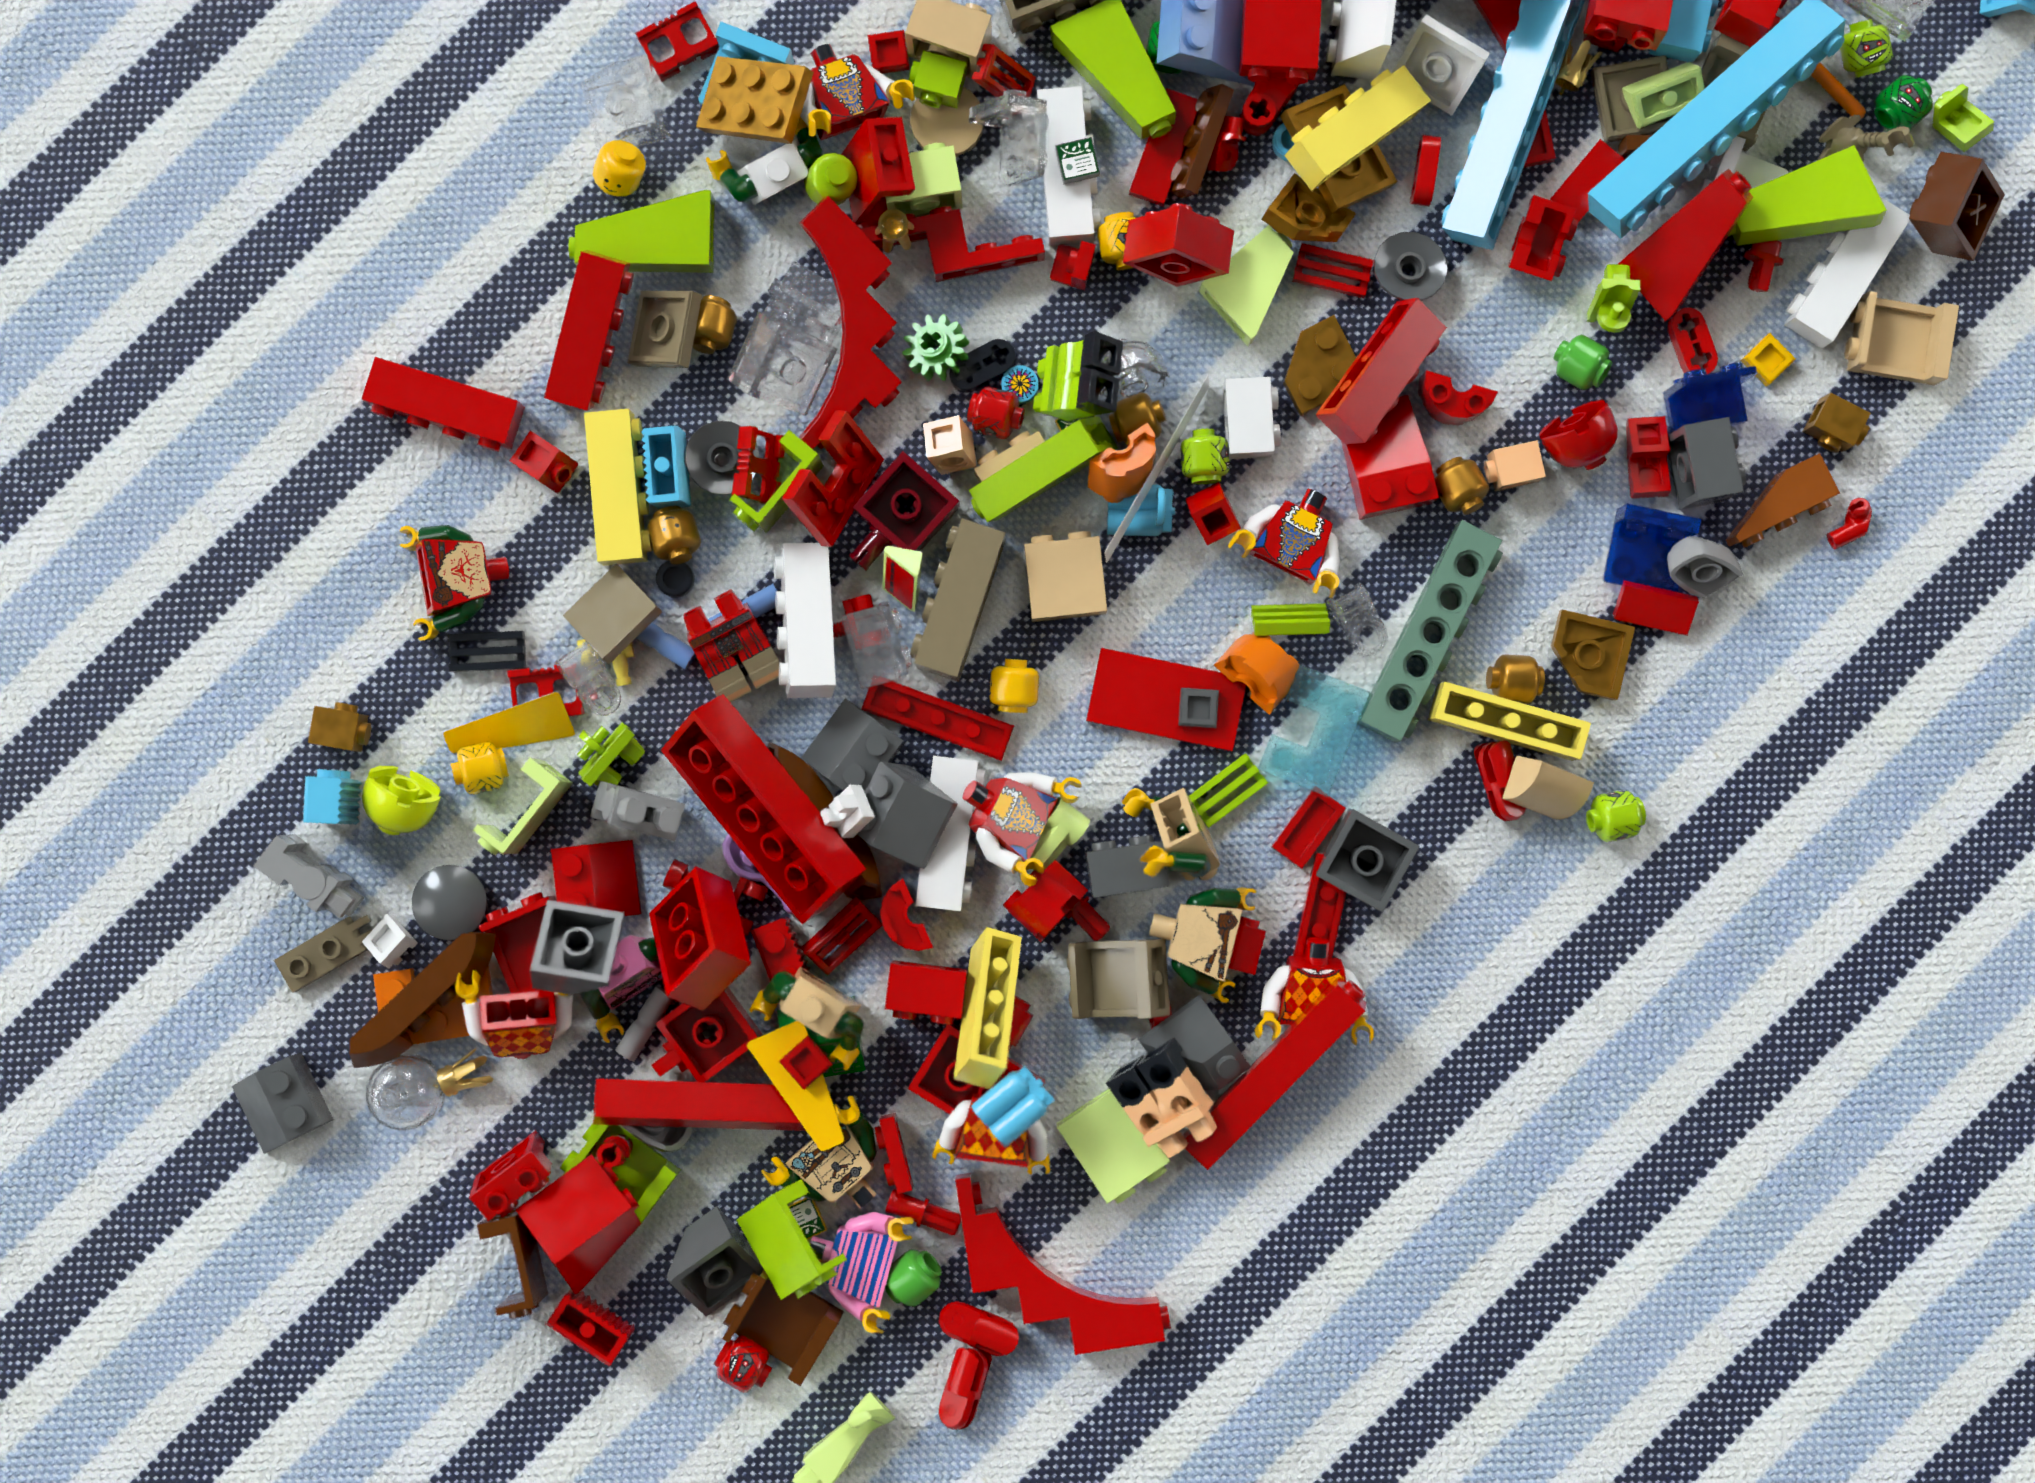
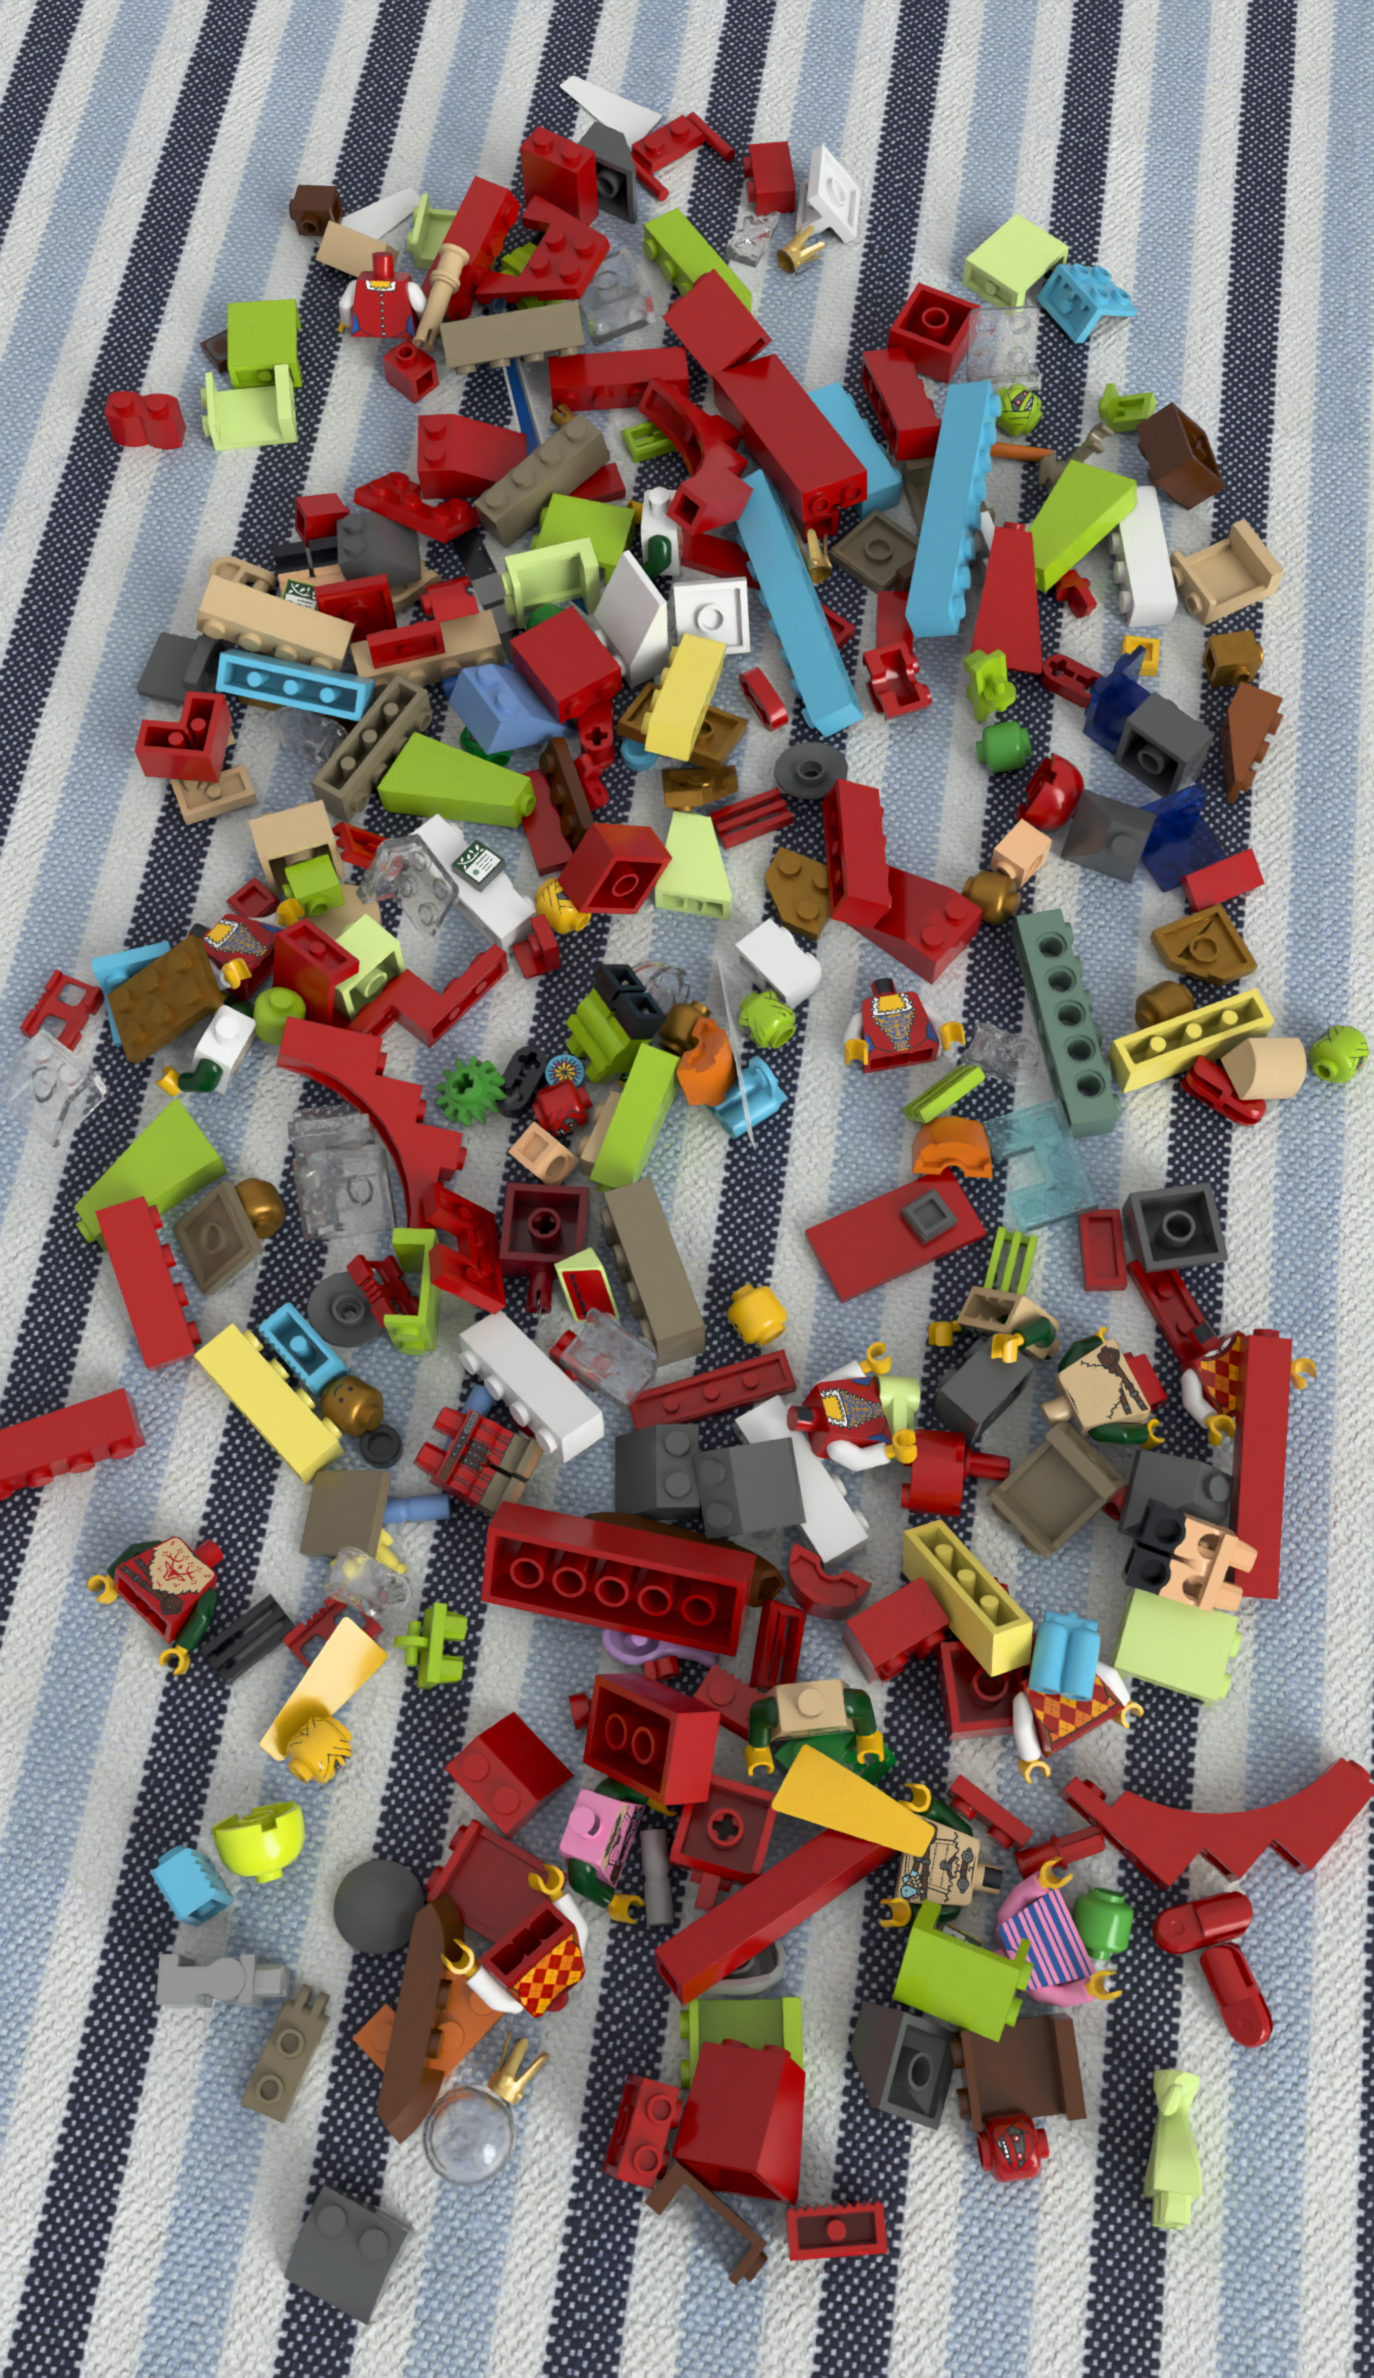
camera: 35 degrees left, 20 degrees down
(339, 727) = (152, 1815): pearl gold brick -> none
(389, 941) = (346, 1988): white tile -> none
(544, 462) = (185, 1429): red bracket -> none
(554, 787) = (398, 1705): yellowish green panel -> none
(575, 948) = (541, 1832): dark grey slope -> none
(606, 1151) = (733, 2009): red pin -> none
(619, 168) = (81, 1138): yellow head -> none
(637, 810) = (501, 1666): light grey hips -> none
(806, 1062) = (841, 1778): red tile -> none
(848, 812) = (700, 1516): white tile -> none
(894, 227) = (362, 1008): clear yellow piece -> none
(1065, 577) = (729, 1193): tan brick -> none
(1213, 513) = (811, 1053): red brick -> none
(1450, 405) = (928, 844): red cylinder -> none
(1593, 506) = (1108, 836): none -> dark grey slope
(1648, 457) = (1109, 776): red slope -> none
(1663, 93) = (897, 531): yellowish green slope -> none
(1702, 565) = (1231, 818): light grey piece -> none
(1854, 526) = (1311, 718): red arm -> none
(1903, 103) = (1074, 423): green head -> none

